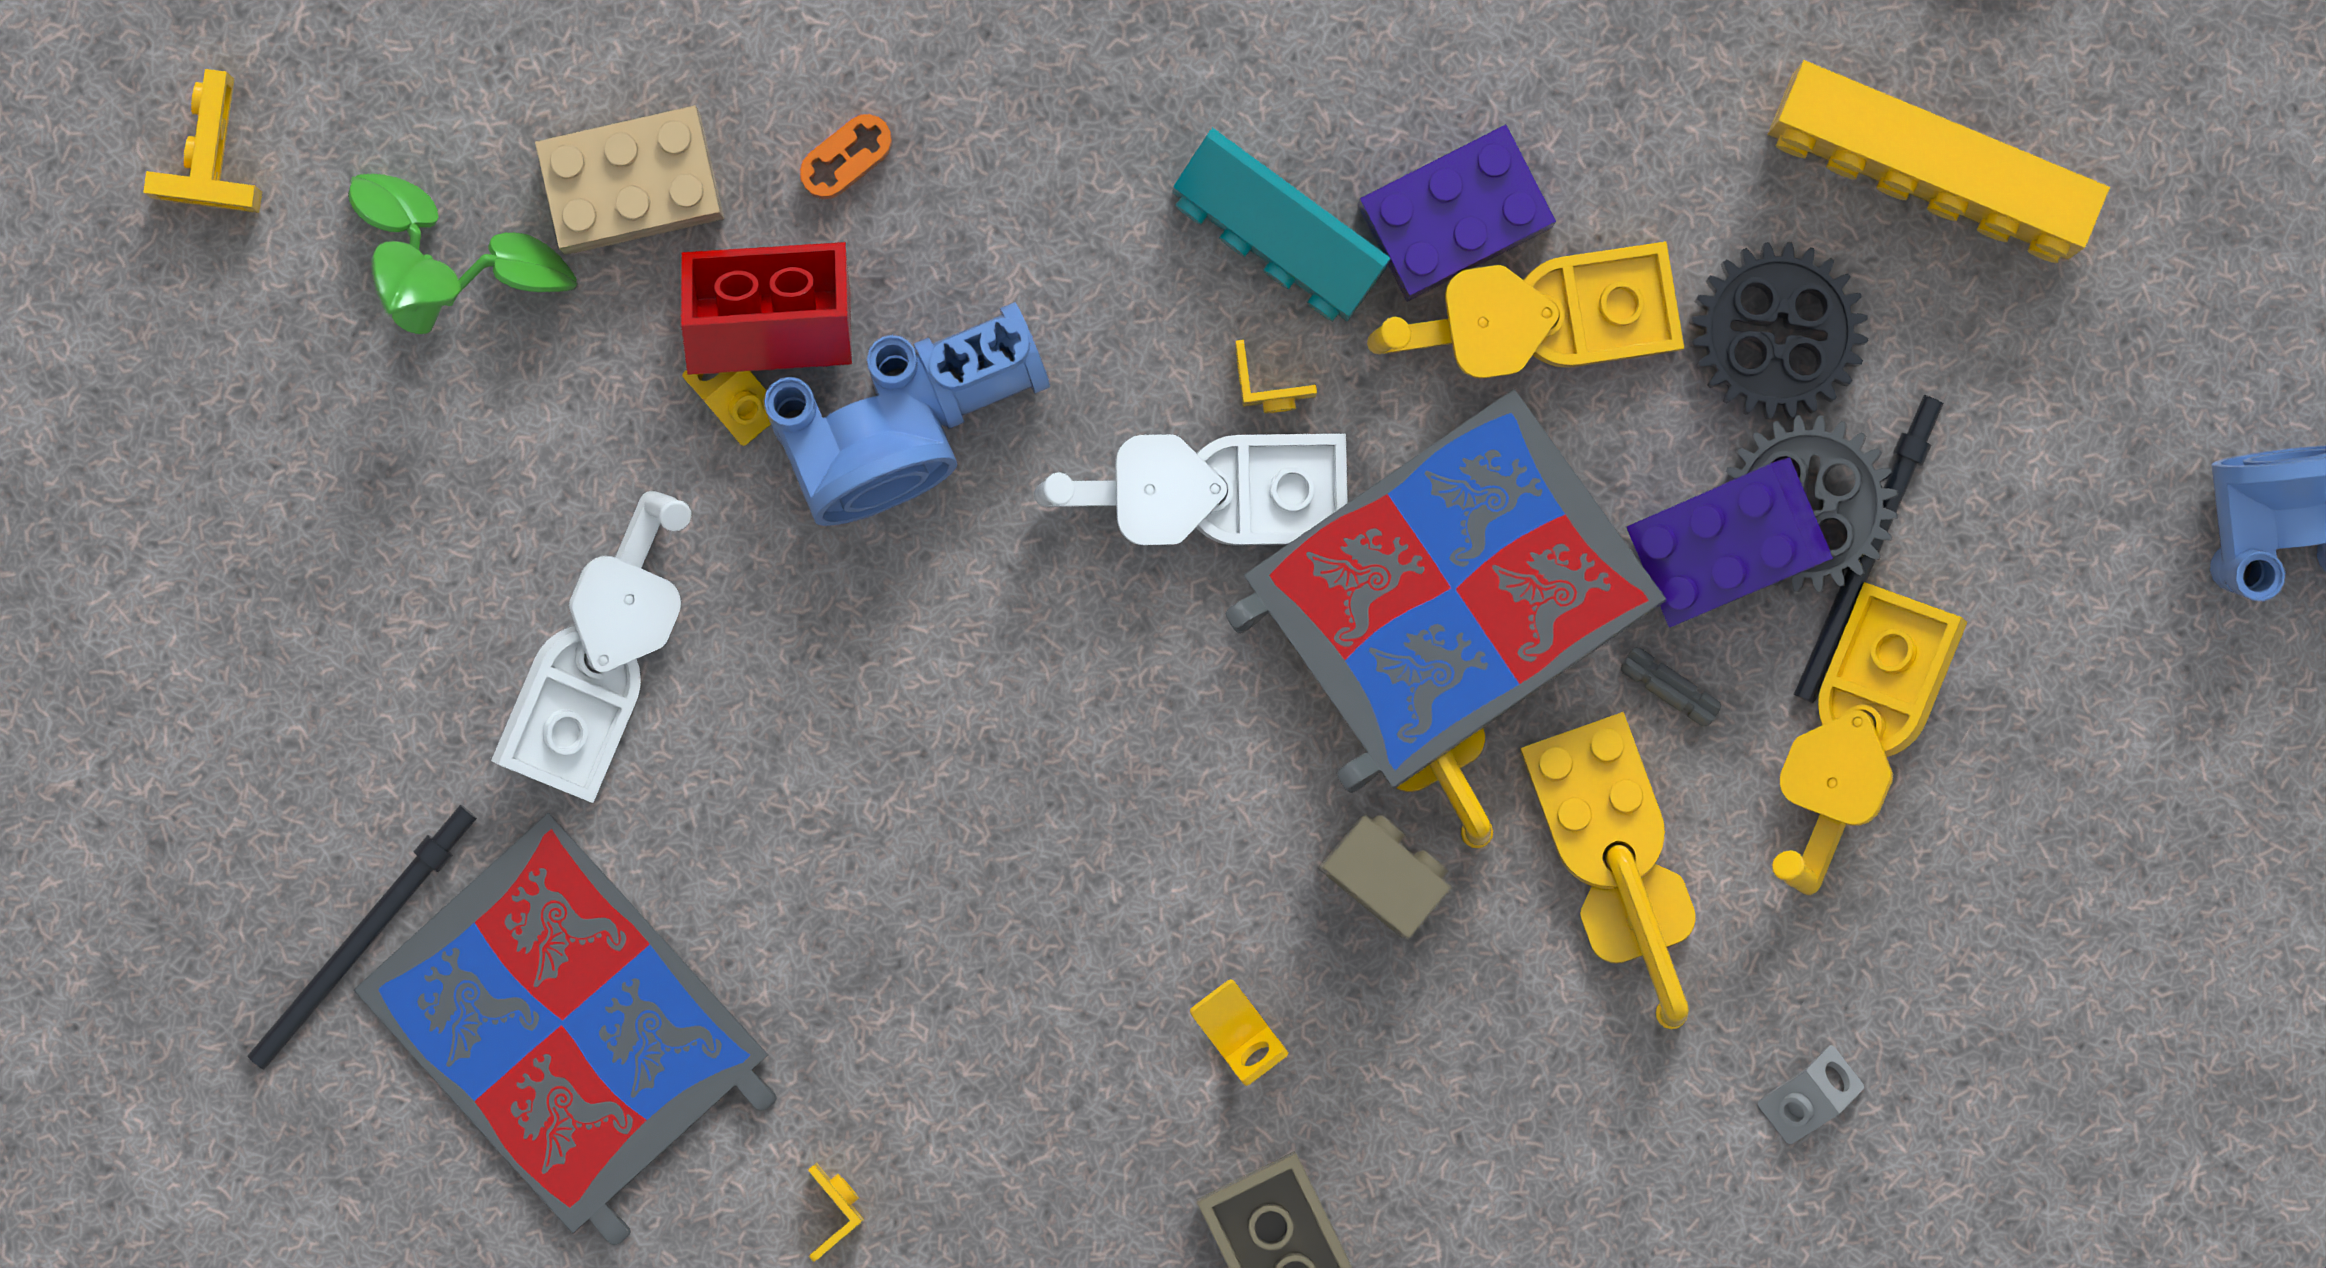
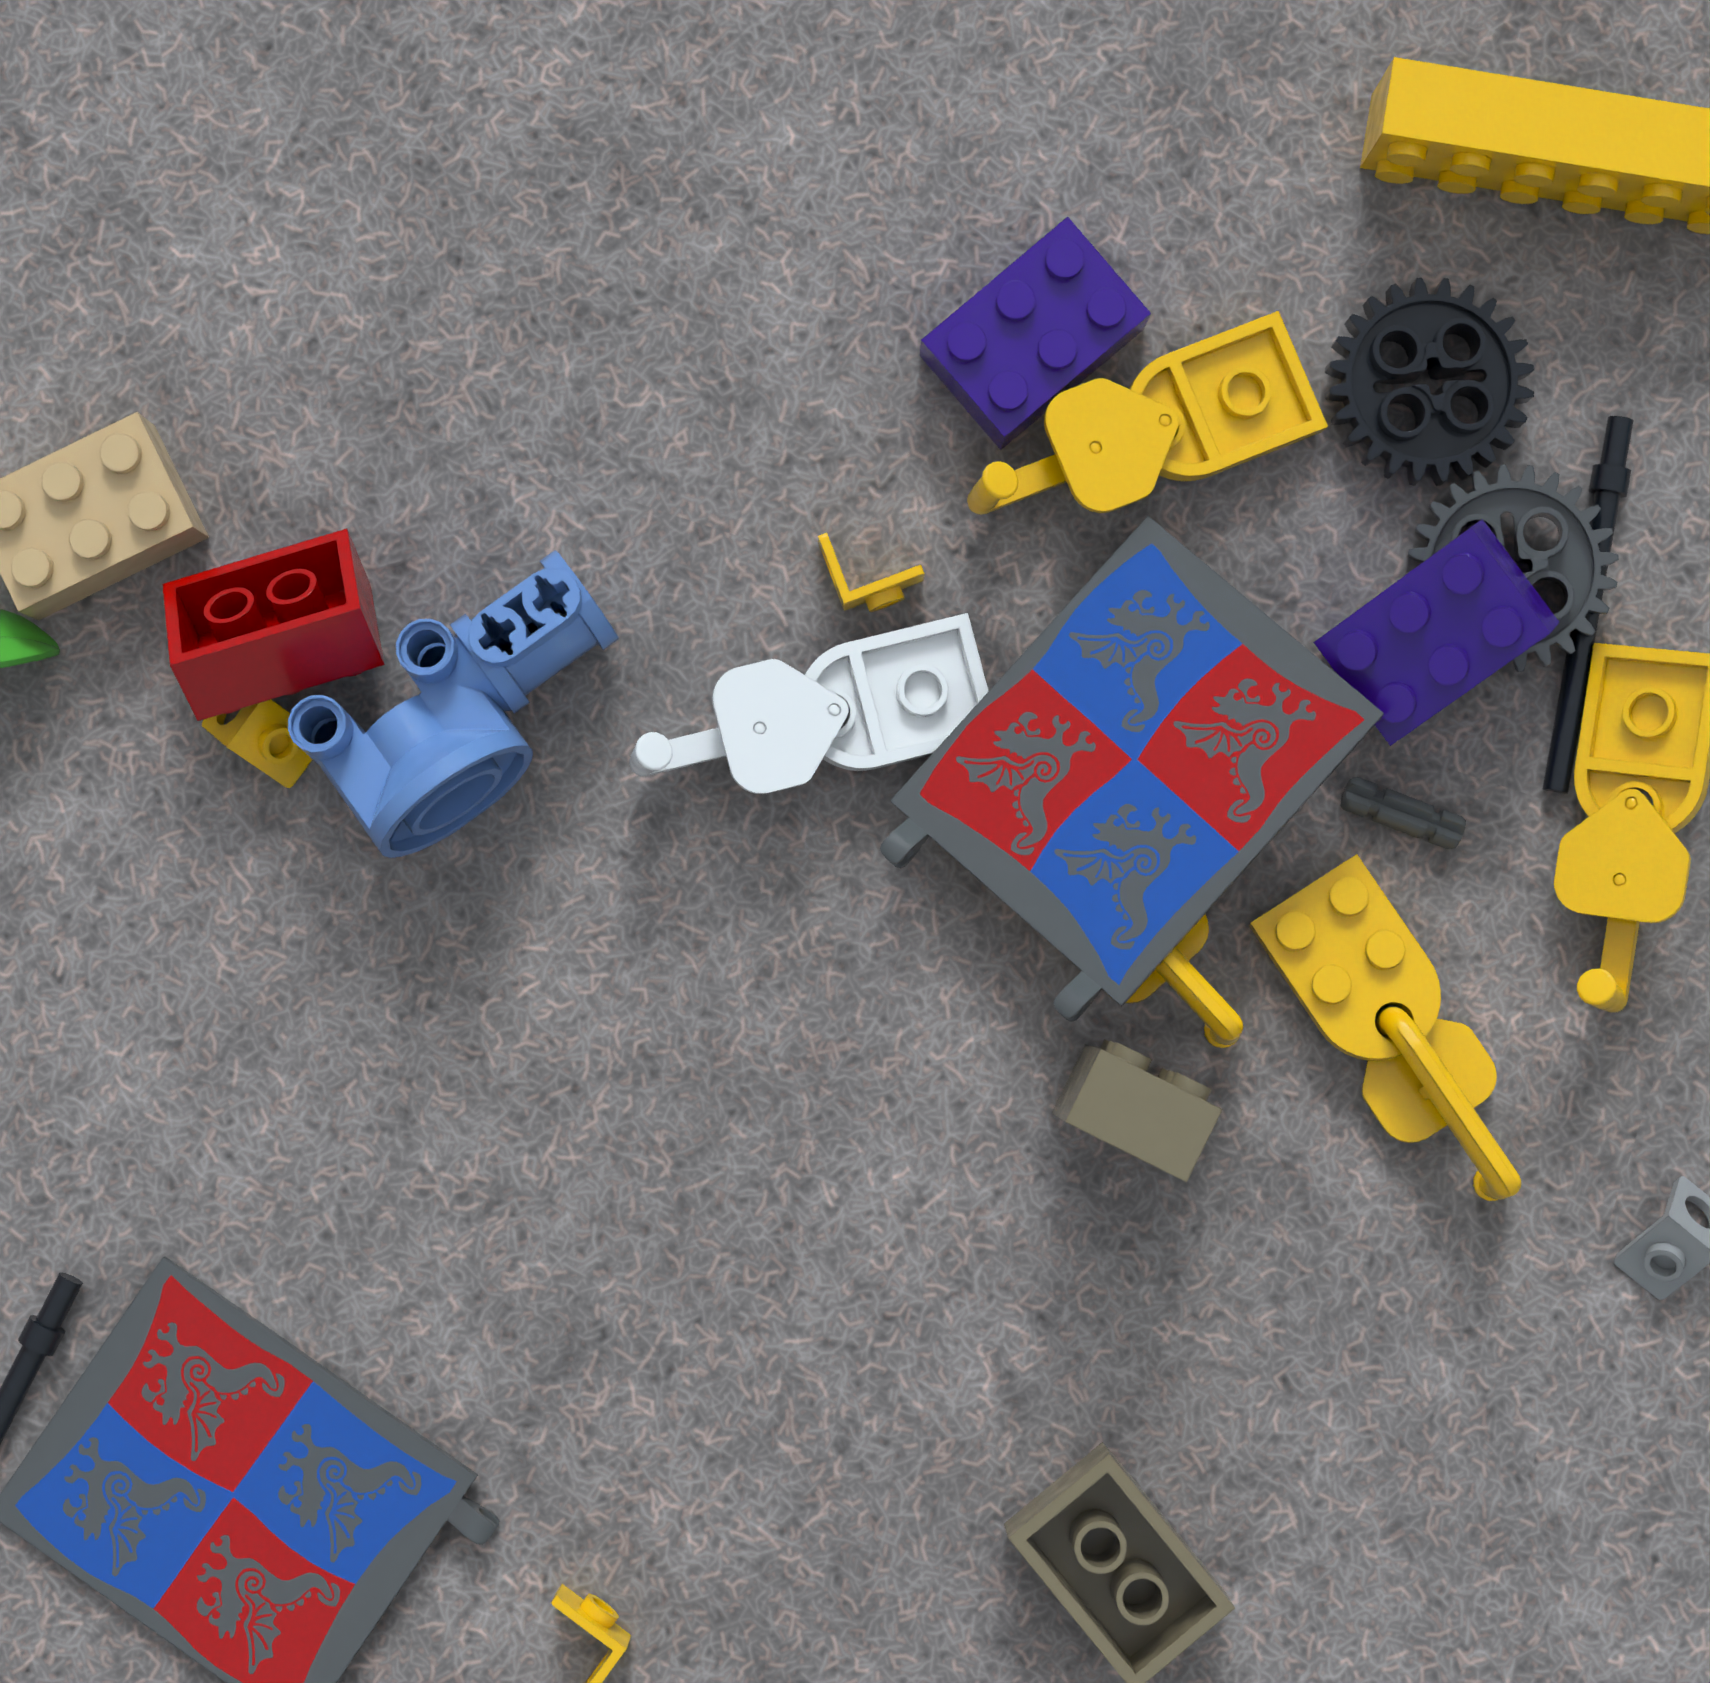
camera: 10 degrees left, 0 degrees up
(575, 716) = (157, 1144): white plate -> none
(855, 166) = (316, 425): orange beam -> none
(1237, 1031) = (1006, 1323): yellow bracket -> none
(1279, 226) = (836, 393): teal slope -> none

